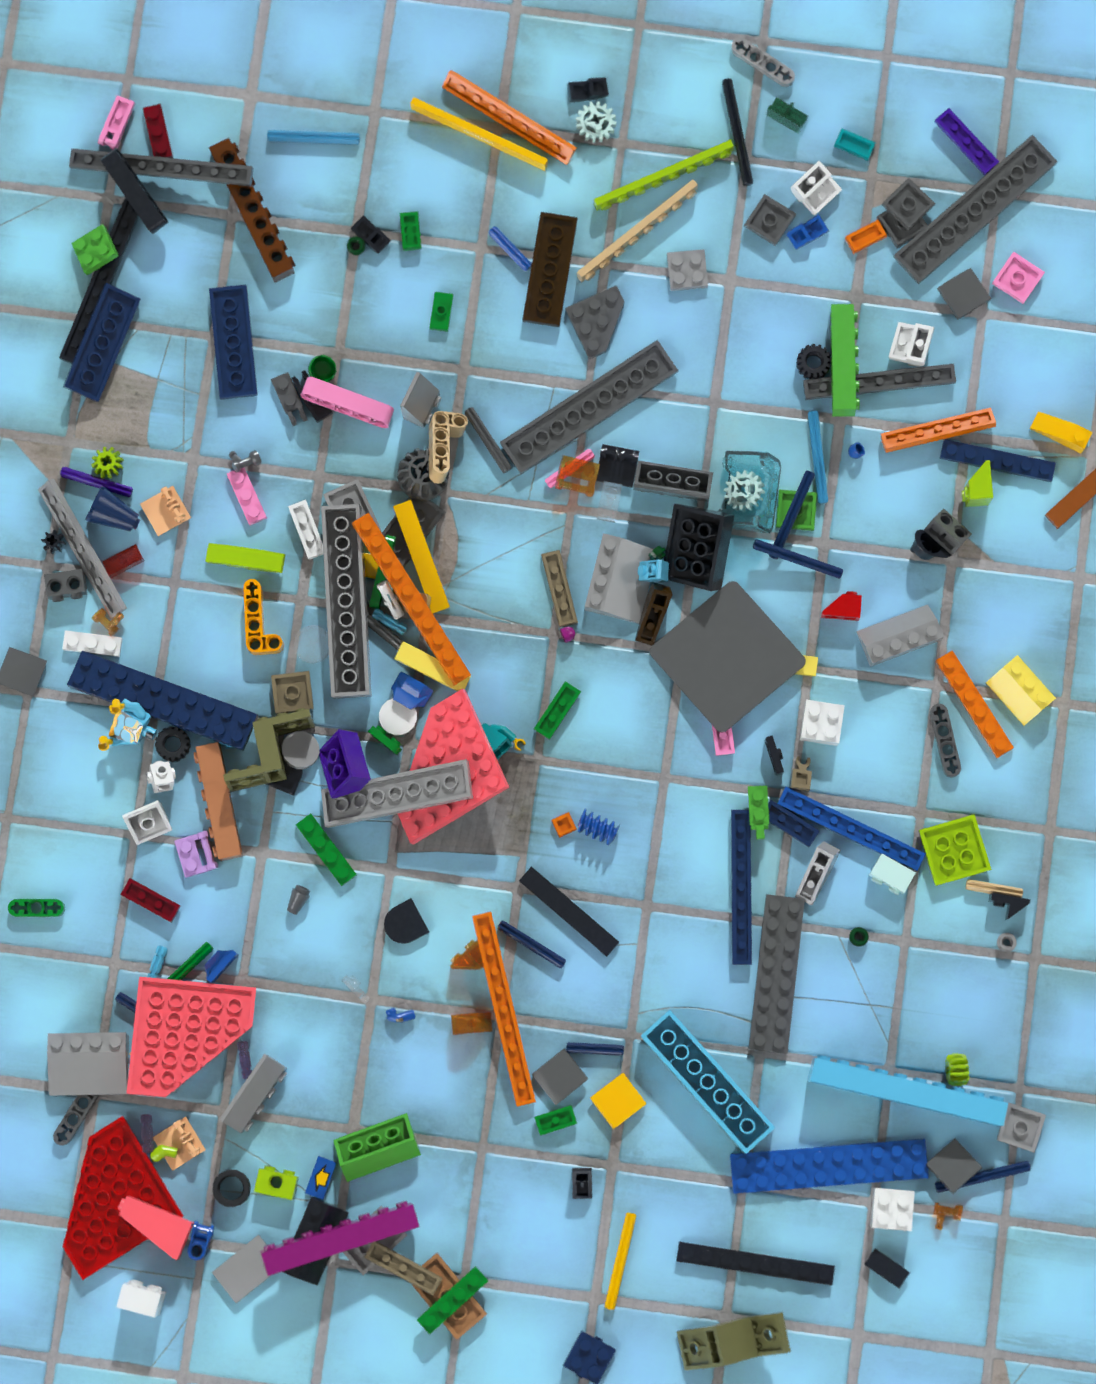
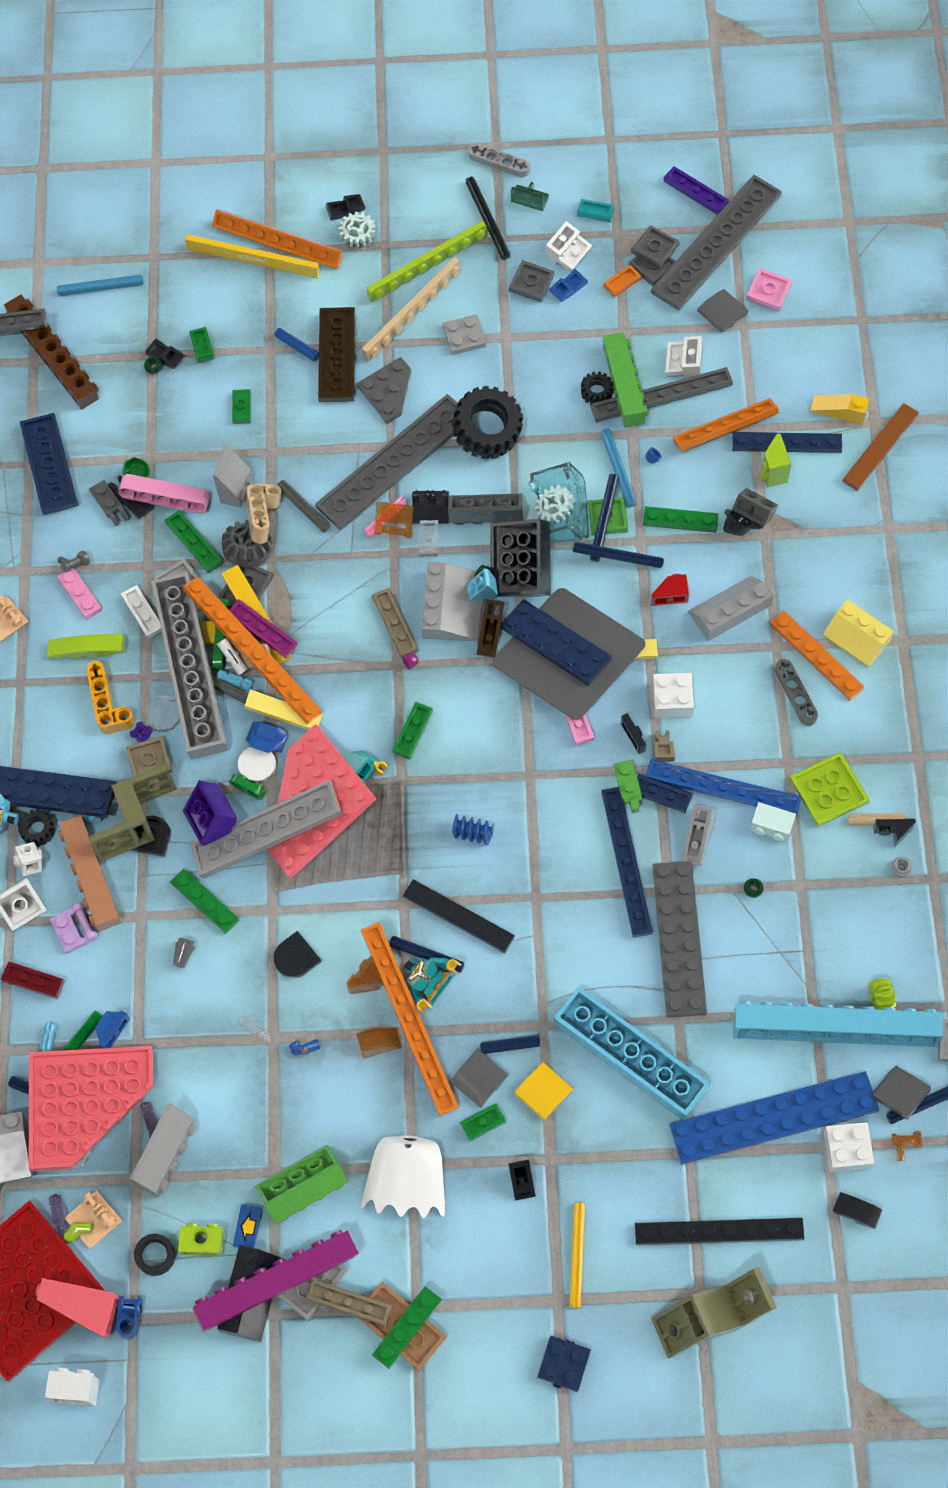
camera: 10 degrees left, 15 degrees down
(243, 1270) = (180, 1340): light grey tile -> none
(293, 661) = (143, 736): none -> dark purple plate
(300, 750) = (164, 810): light grey tile -> none
(369, 460) = (193, 541): none -> green plate
(425, 575) = (263, 629): none -> magenta plate
(475, 1160) = (406, 1176): none -> white piece
(528, 973) = (429, 980): none -> torso
(564, 824) = (438, 835): orange tile -> none
(716, 643) = (555, 642): none -> dark blue plate
(717, 385) = (497, 403): none -> black tyre
(869, 527) = (680, 519): none -> green plate

